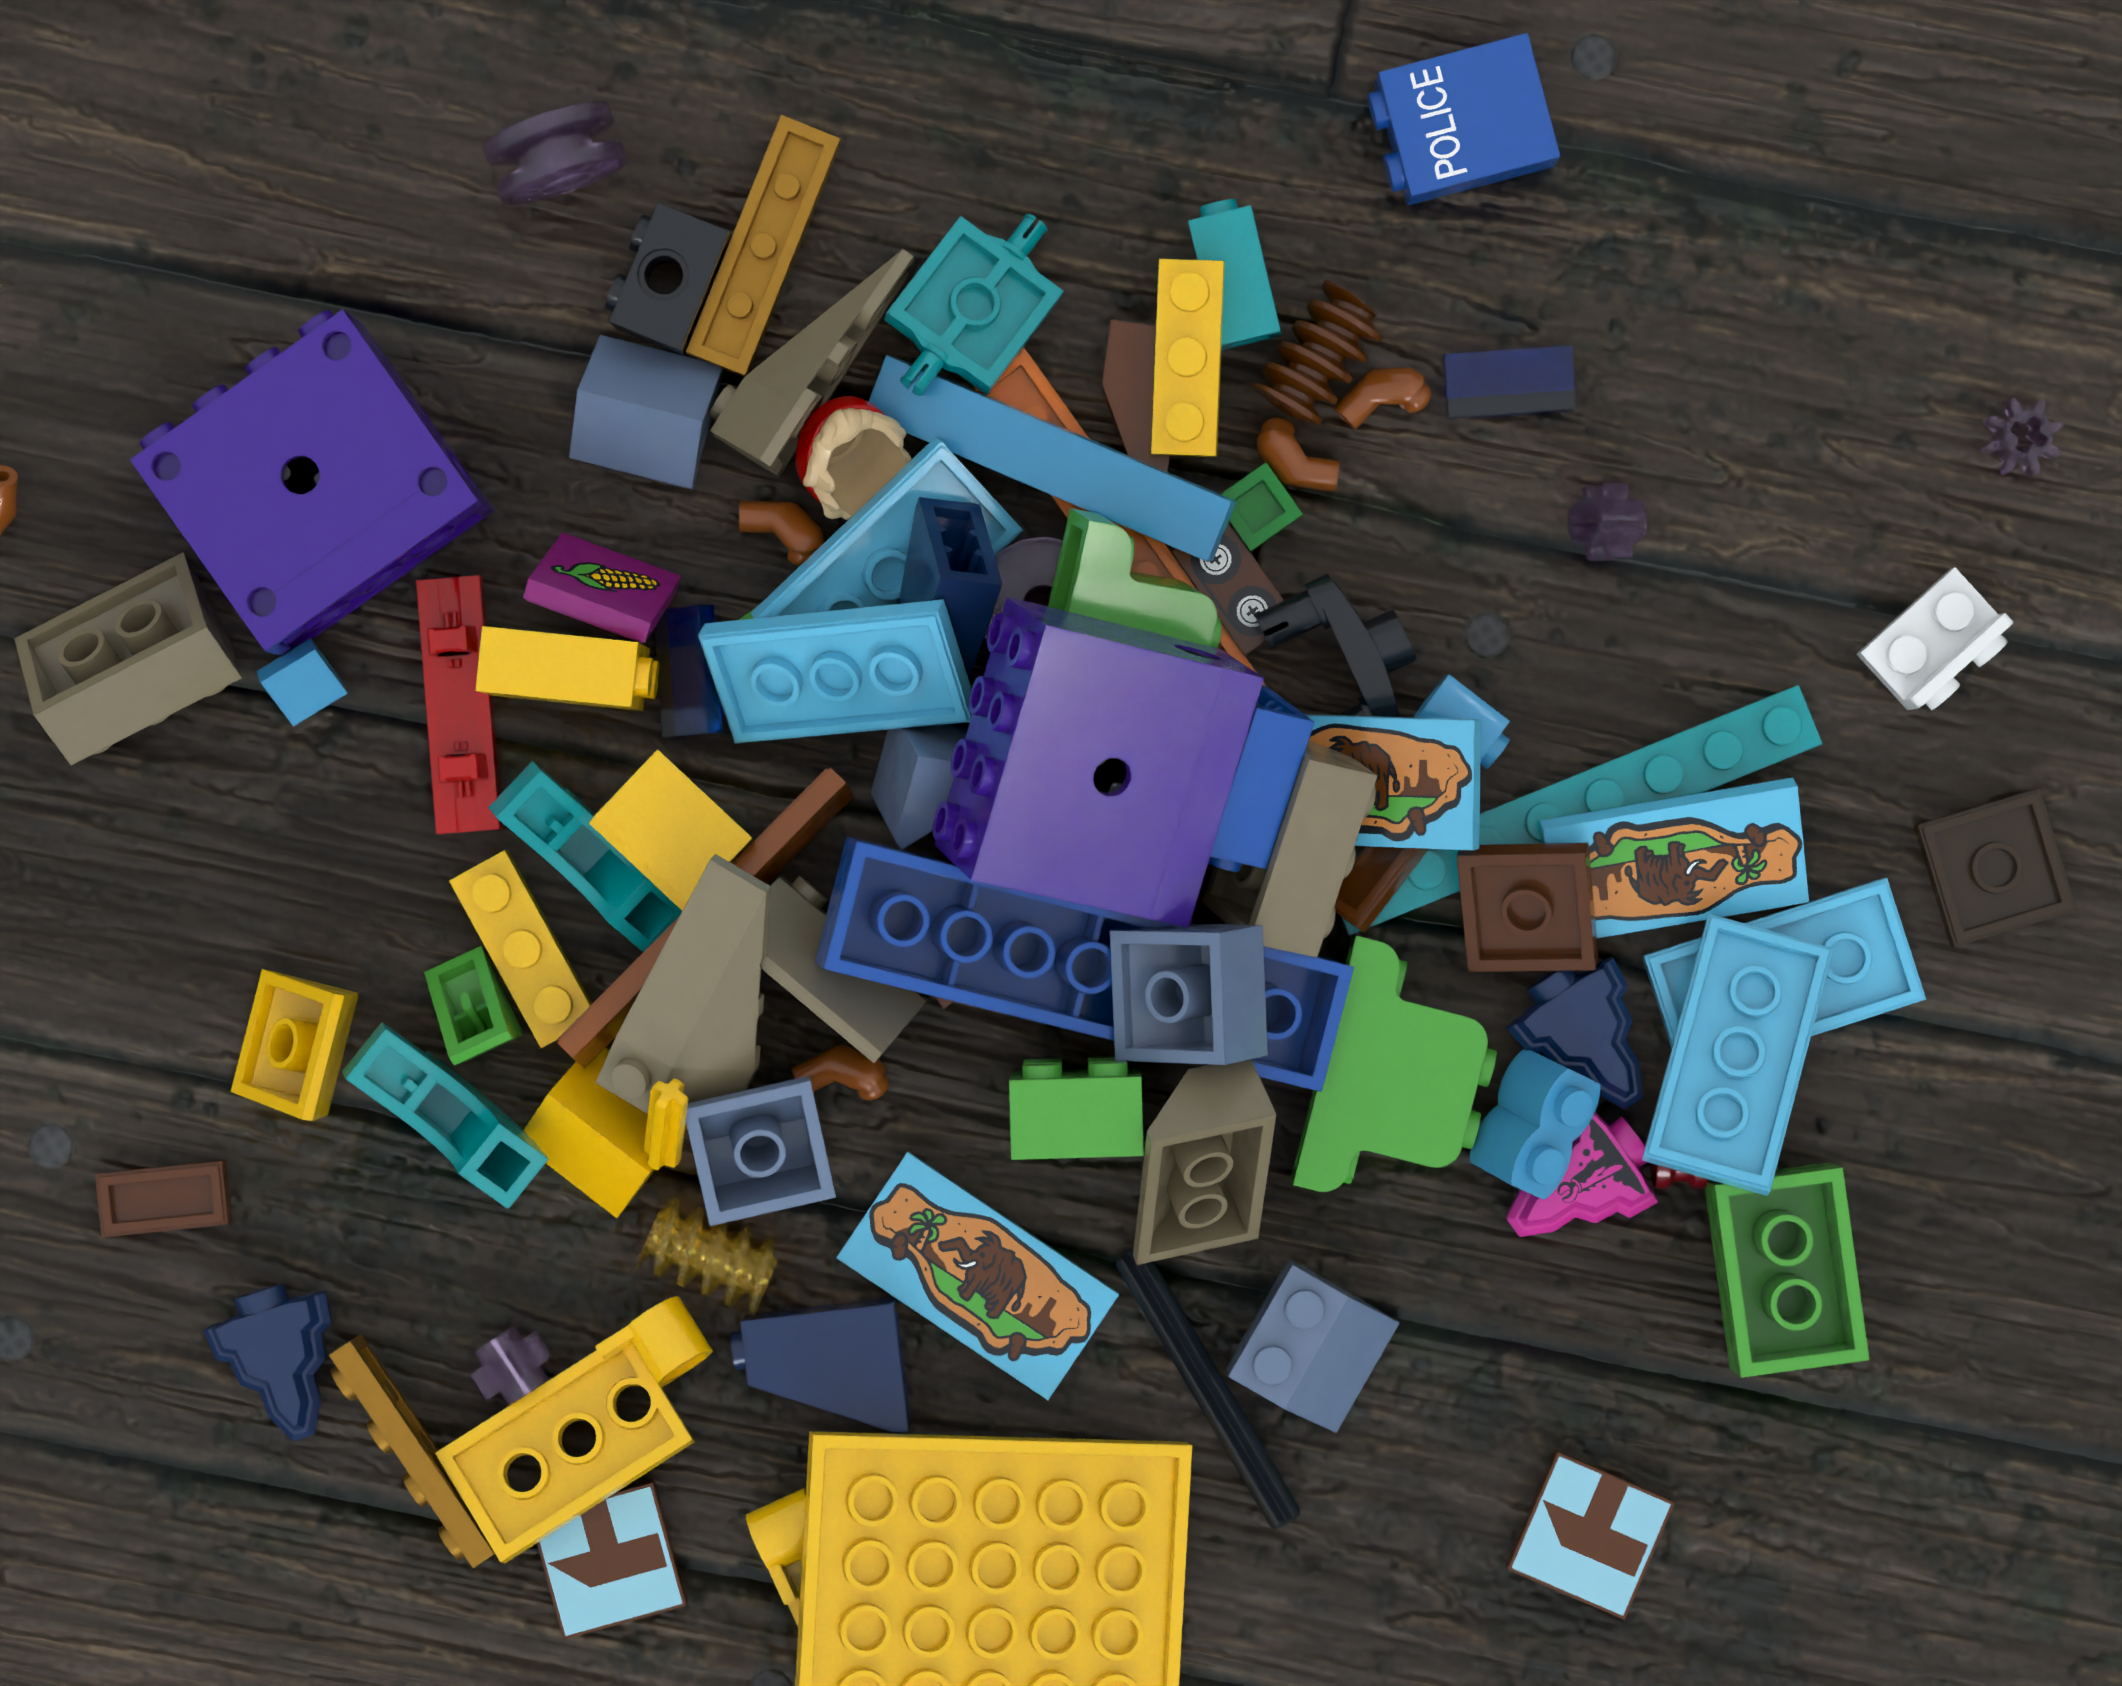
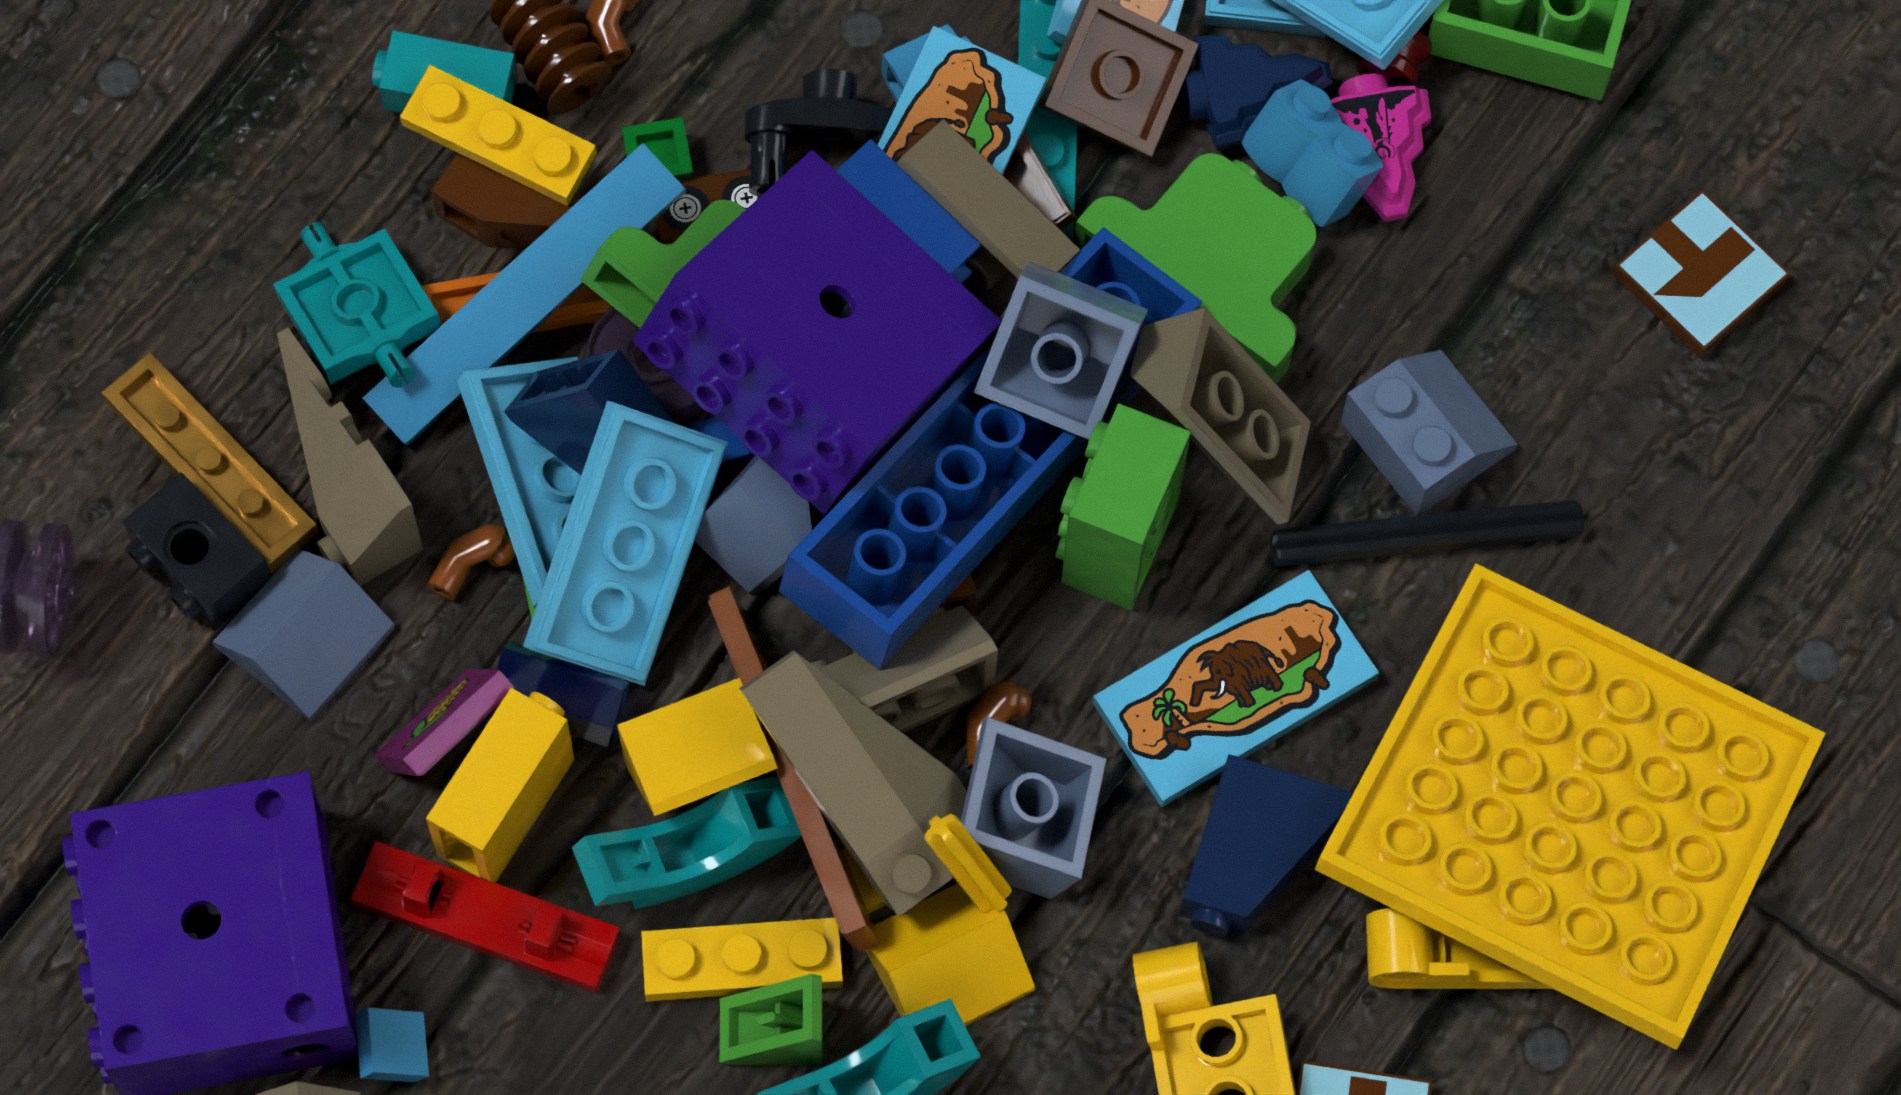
camera: 70 degrees left, 20 degrees down
(710, 1255) = (1106, 904): clear yellow piece -> none
(849, 454) = (436, 460): tan hair -> none
(1288, 461) = (612, 113): dark orange arm -> none

